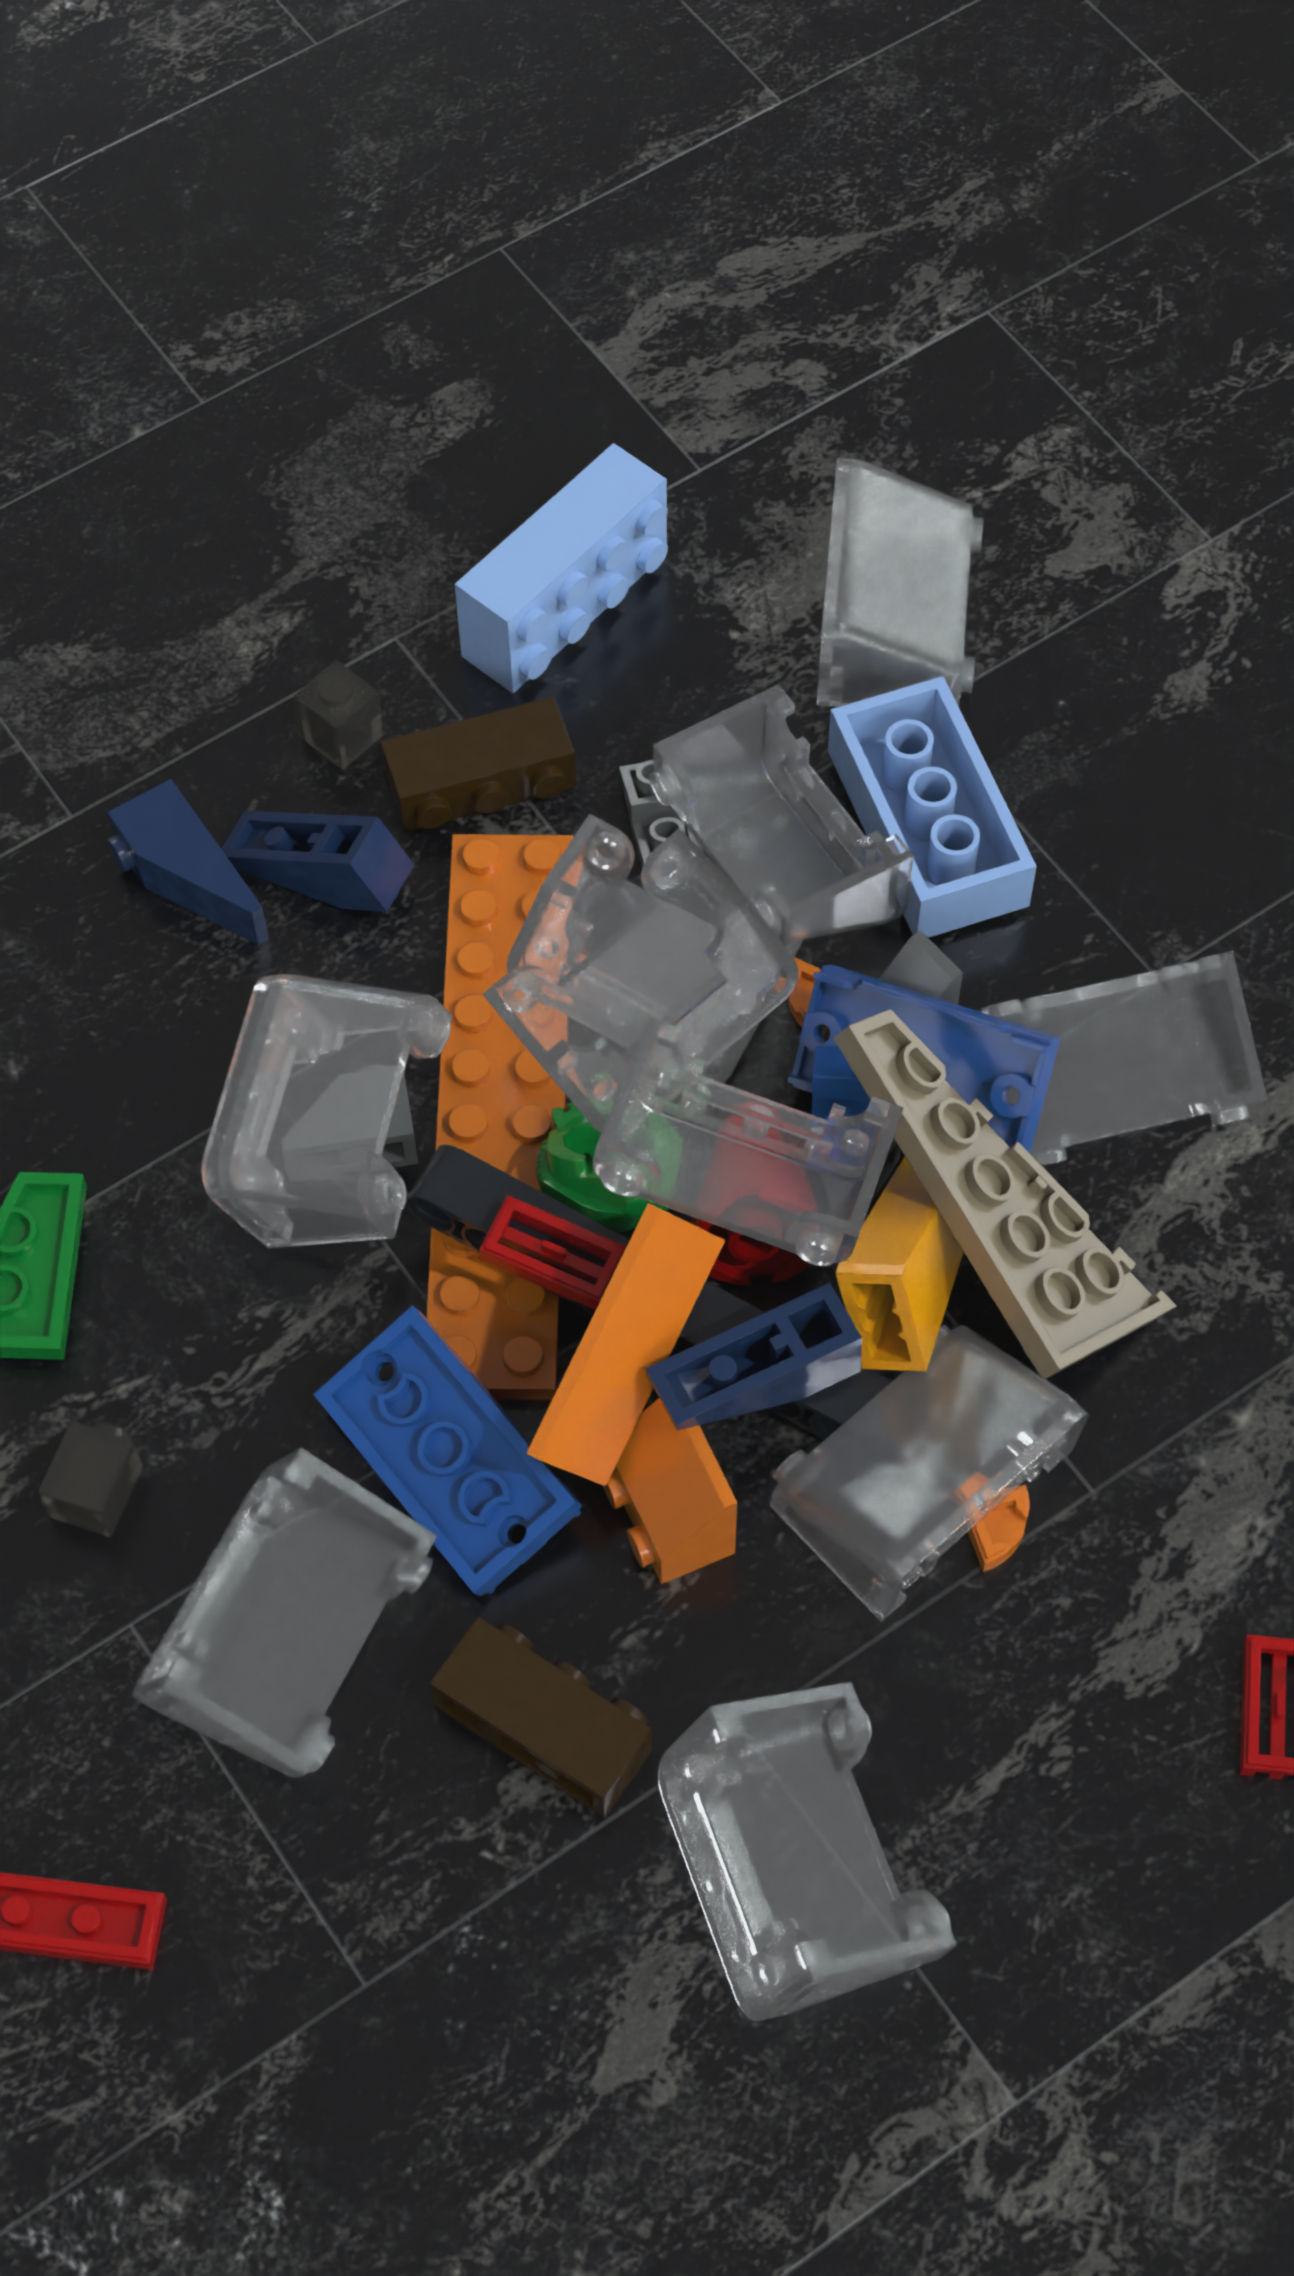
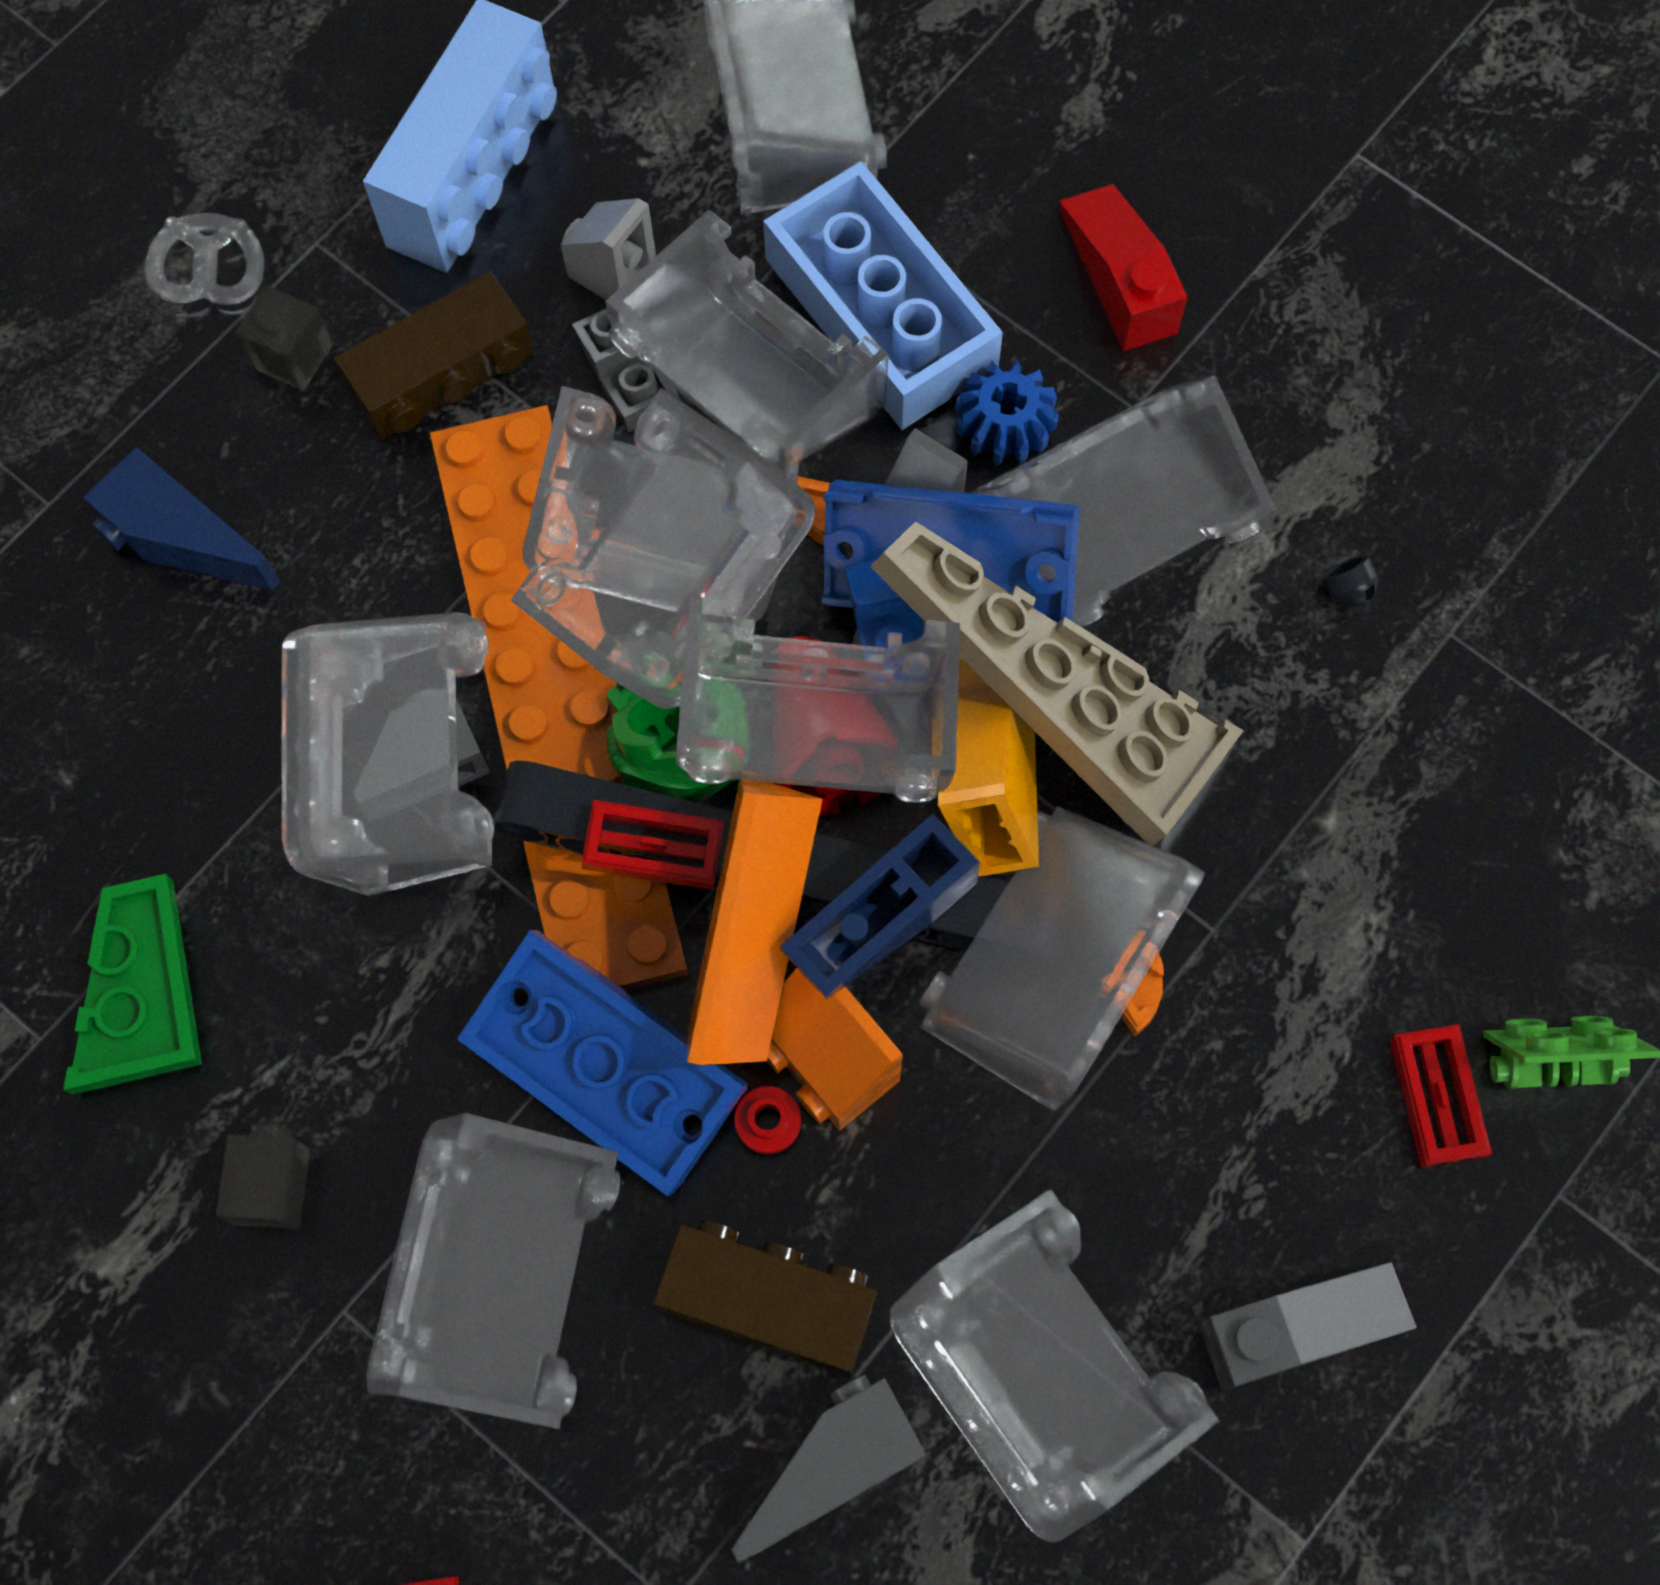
camera: 15 degrees left, 10 degrees up
(285, 627) = (205, 259): none -> clear piece
(322, 856) = (307, 487): dark blue slope -> none
(568, 1886) = (842, 1457): none -> dark grey slope
(596, 1569) = (771, 1140): none -> red plate
(674, 697) = (609, 245): none -> light grey slope
(1024, 947) = (1011, 392): none -> blue gear
(1073, 1886) = (1306, 1325): none -> slope
(1184, 840) = (1125, 266): none -> red slope

